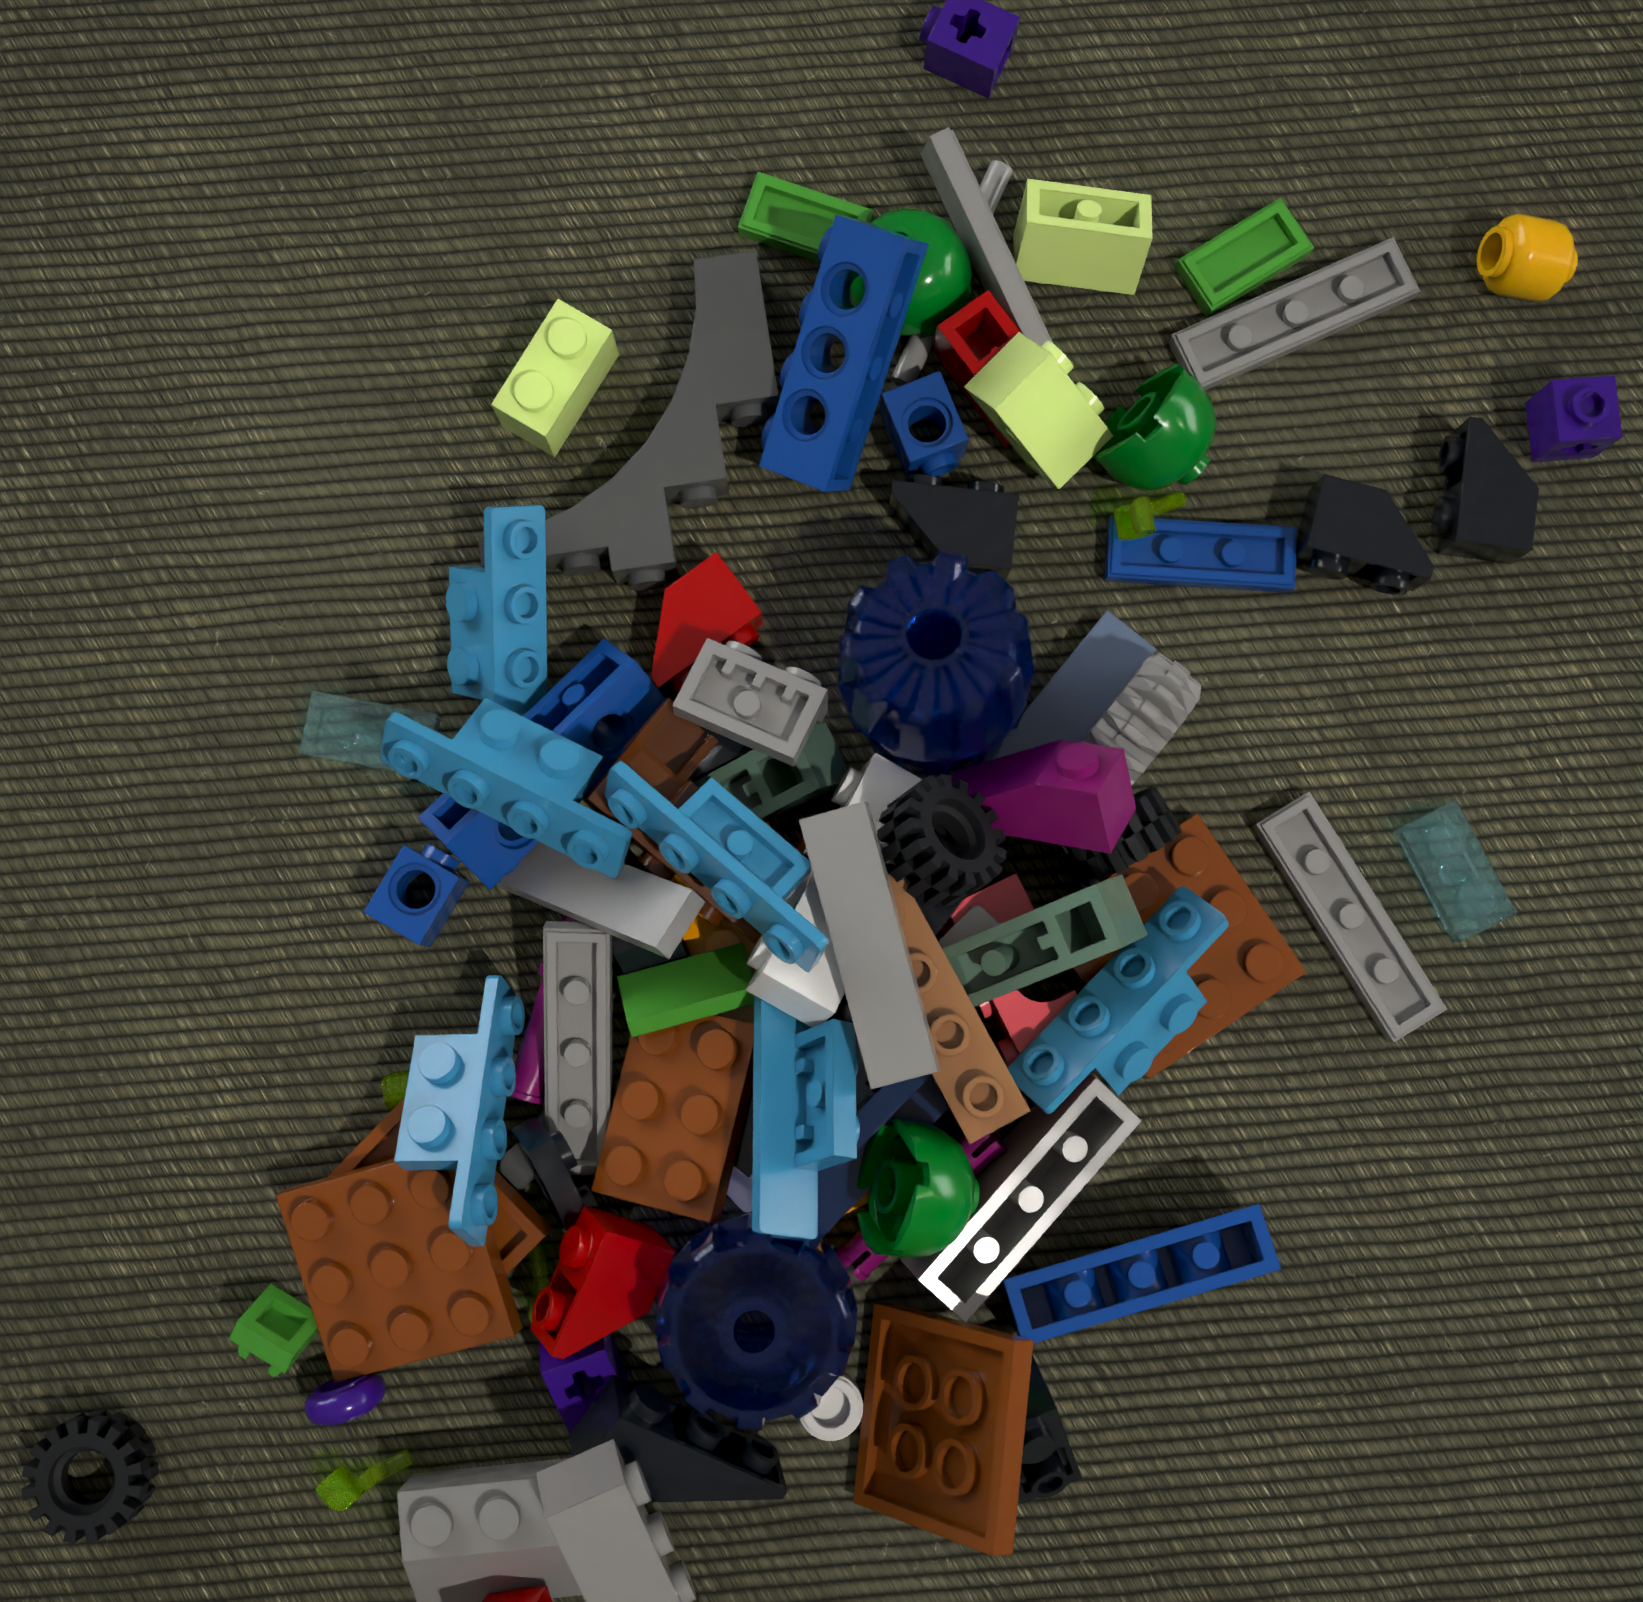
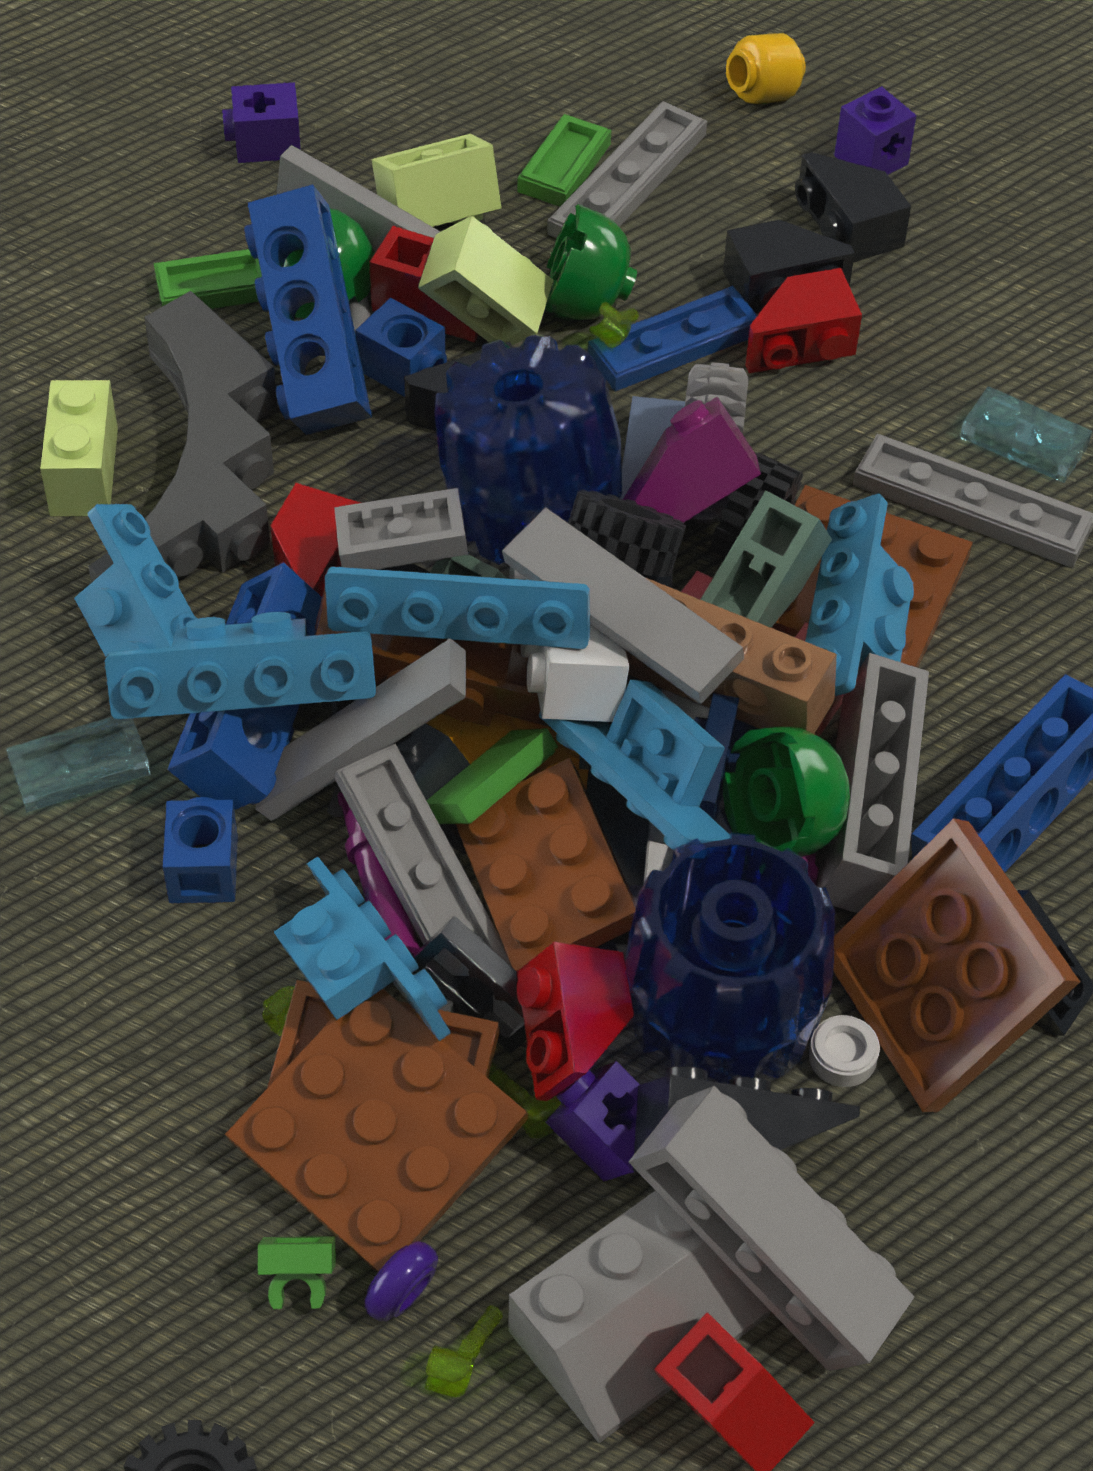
camera: 30 degrees left, 30 degrees down
(1337, 619) = (805, 322): none -> red slope

